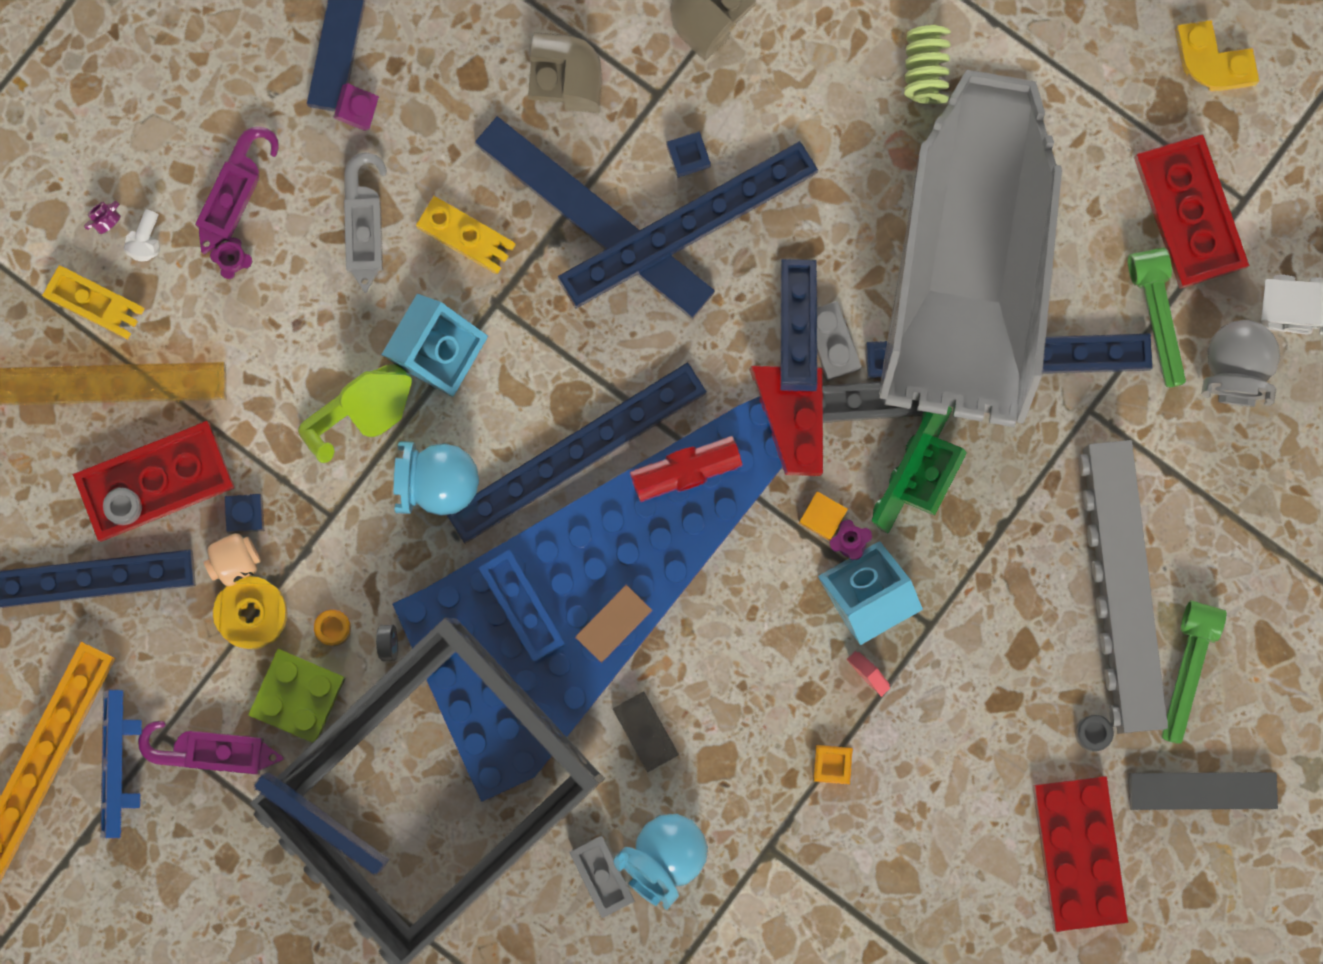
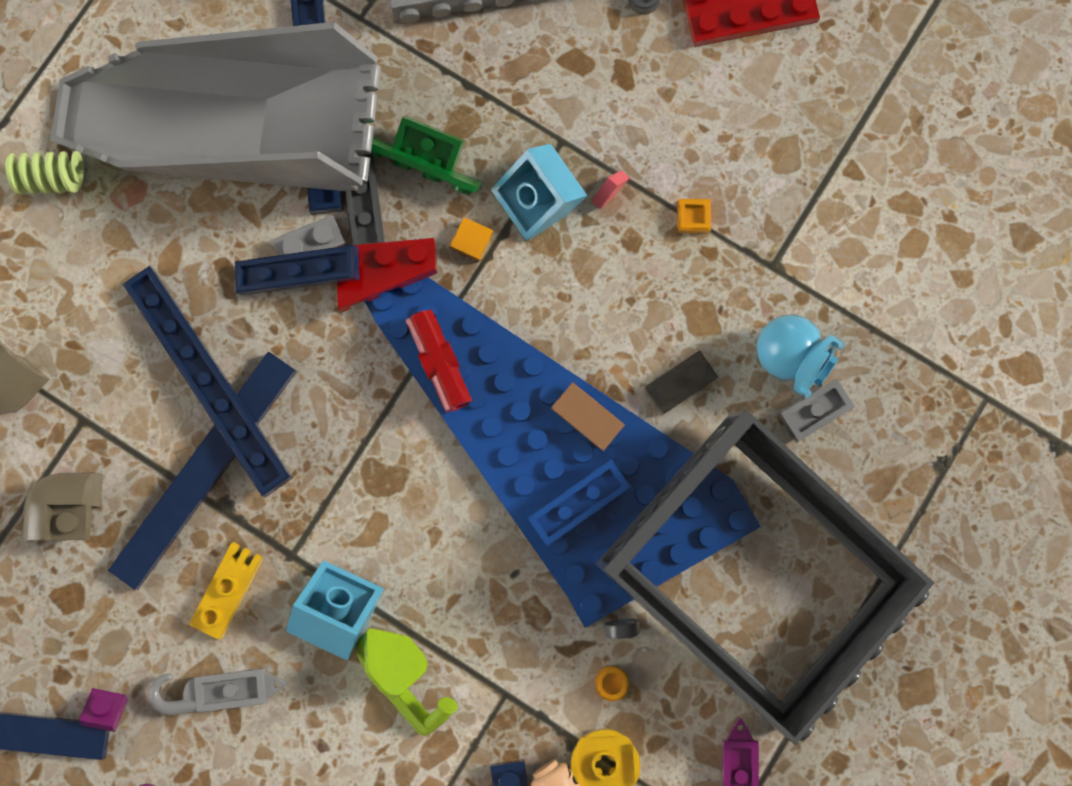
camera: 90 degrees left, 0 degrees up
(296, 696) = (679, 711): lime plate -> none
(321, 823) = (811, 672): dark blue tile -> none
(437, 479) = (464, 594): medium azure tile -> none
(578, 452) = (430, 468): dark blue tile -> none
(688, 154) = (139, 385): dark blue plate -> none
(854, 549) = (501, 210): magenta plate -> none

